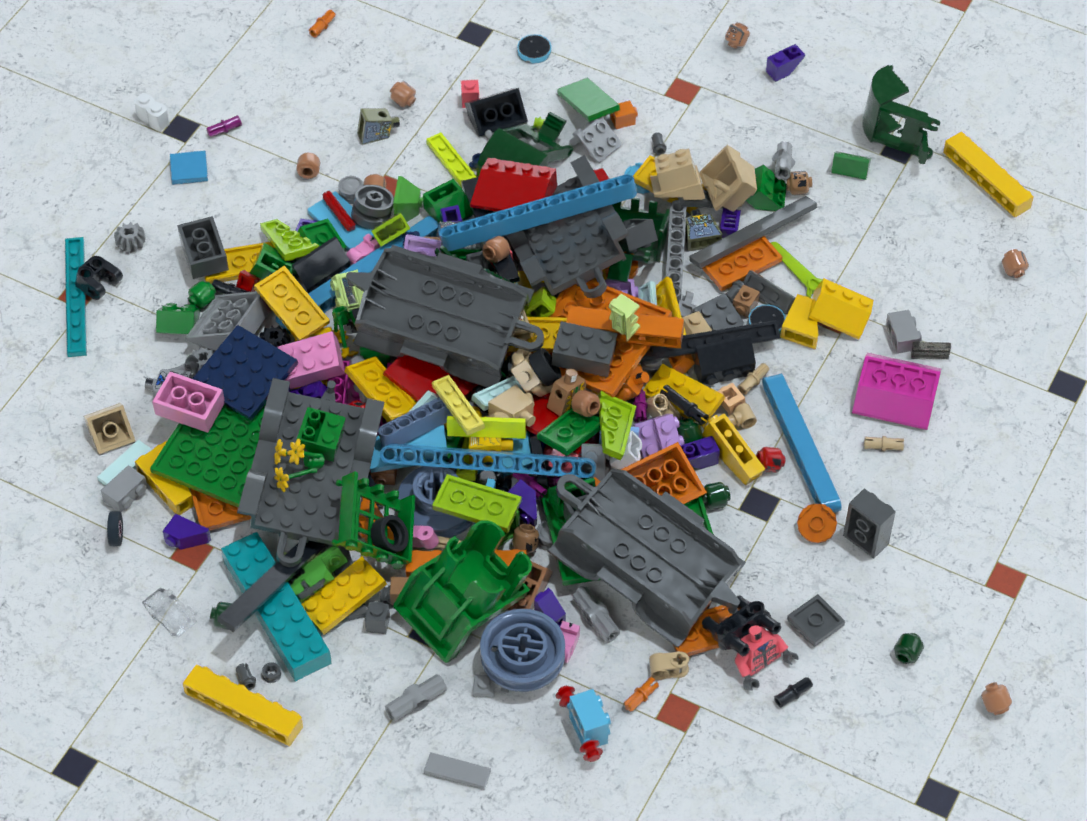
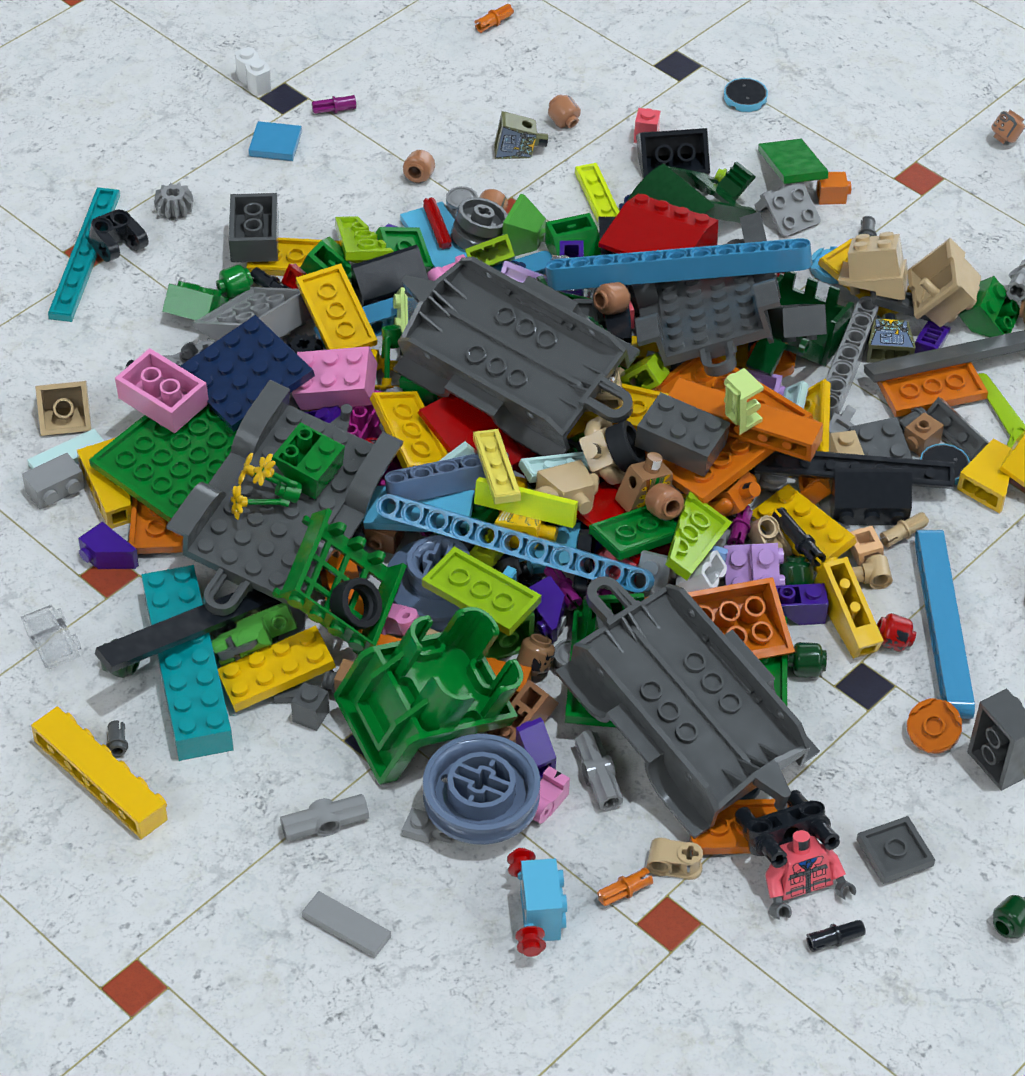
camera: 15 degrees right, 5 degrees down
(115, 528) = (22, 522): black bush -> none
(271, 678) = (149, 748): dark grey bush -> none

